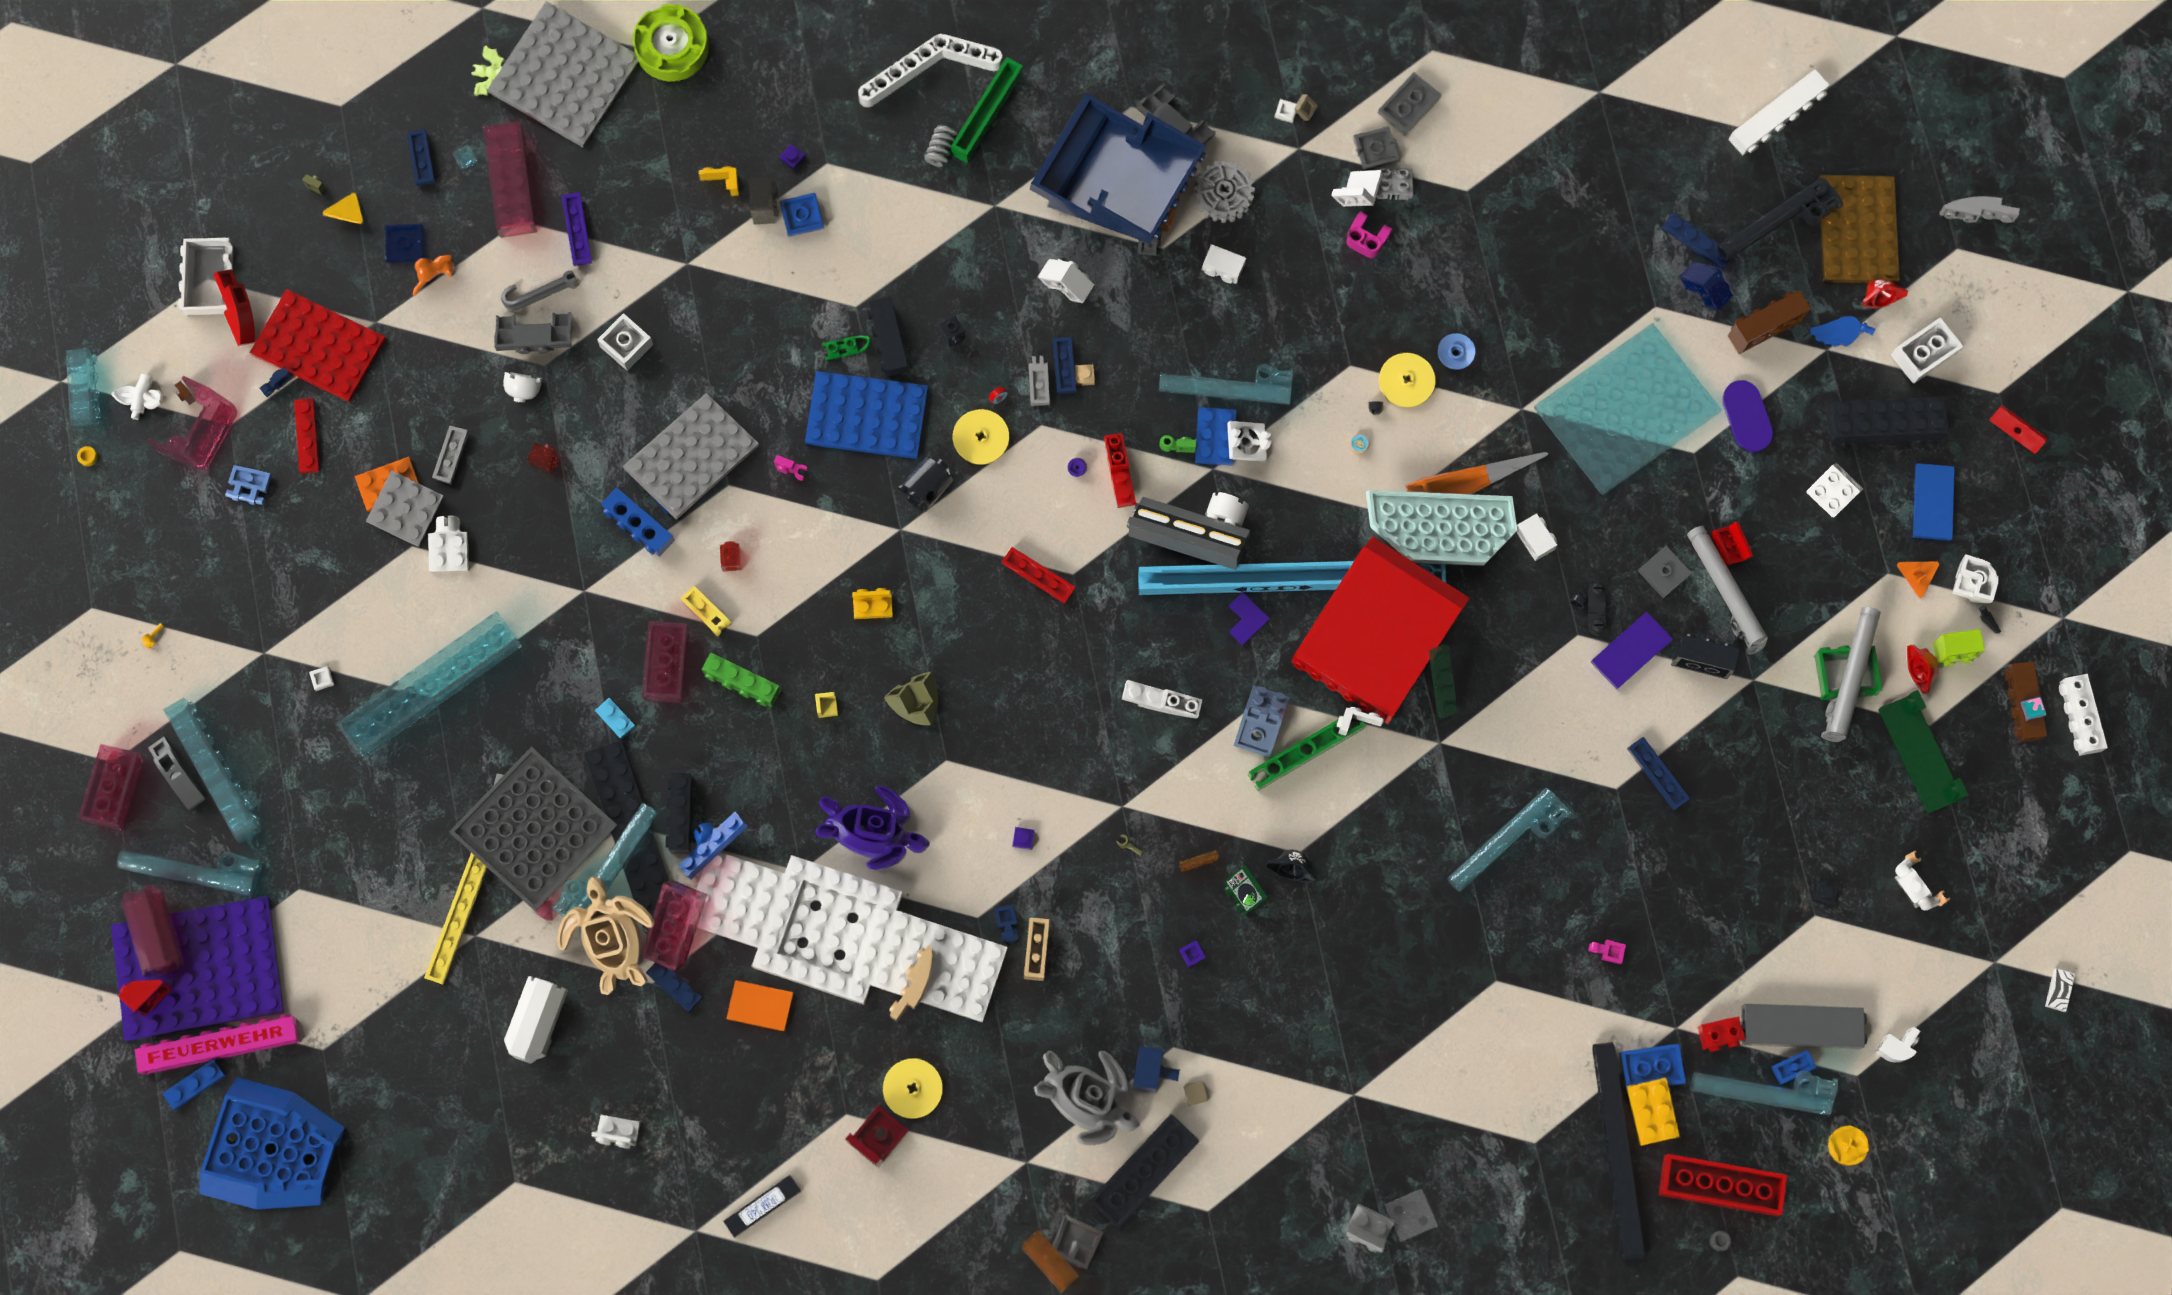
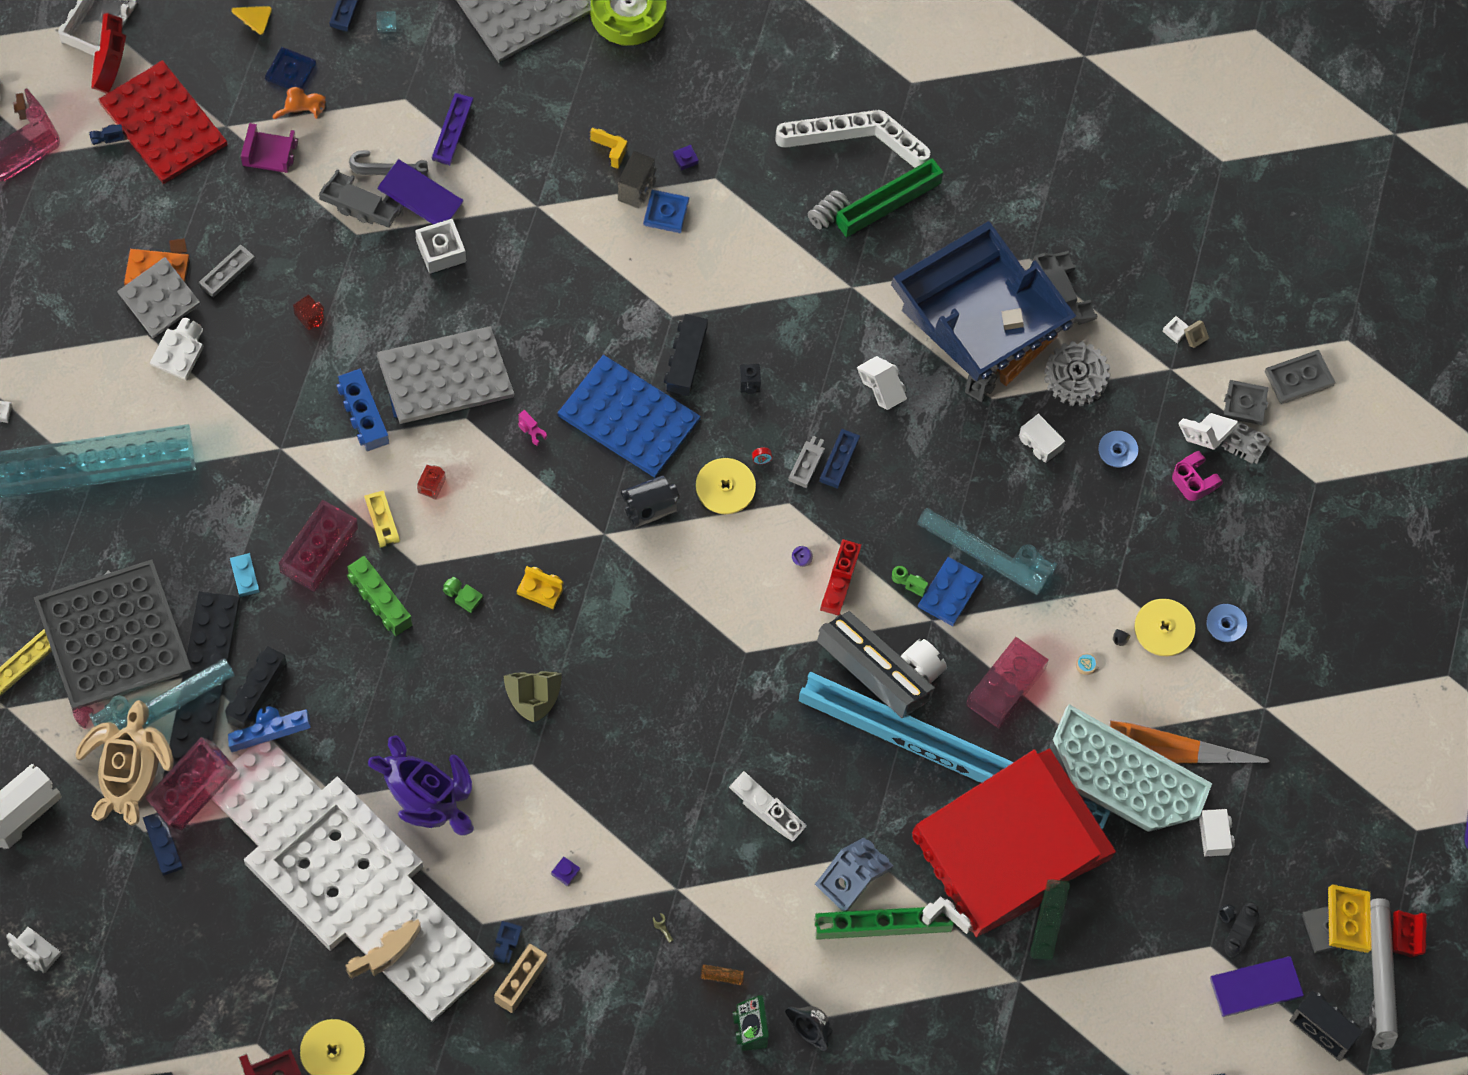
camera: 25 degrees right, 10 degrees down
(249, 479) = (34, 206): medium blue plate -> none
(306, 435) = (108, 194): red plate -> none
(394, 452) = (178, 245): none -> reddish brown sticker
(426, 326) = (268, 150): none -> magenta panel
(509, 179) = (415, 58): clear pink brick -> none
(521, 386) = (324, 241): white cylinder -> none
(581, 303) = (419, 193): none -> dark purple tile
(760, 1006) = (231, 901): orange tile -> none
(815, 643) = (466, 597): none -> bright green plate
(826, 704) = (446, 656): light yellow panel -> none
(849, 344) = (647, 346): green piece -> none
(1038, 575) = (711, 636): red plate -> none
(1084, 375) = (854, 476): tan plate -> none
(1150, 172) = (1012, 319): none -> tile
(1192, 954) = (669, 1059): dark purple plate -> none
(1234, 441) = (960, 614): white piece -> none
(1251, 619) = (895, 775): dark purple tile -> none
(1292, 234) = (1118, 441): none -> medium blue dish
(1303, 493) = (1007, 682): none -> clear pink brick
(1627, 409) = (1370, 757): clear light blue plate -> none
(1679, 556) = (1349, 918): none -> yellow plate

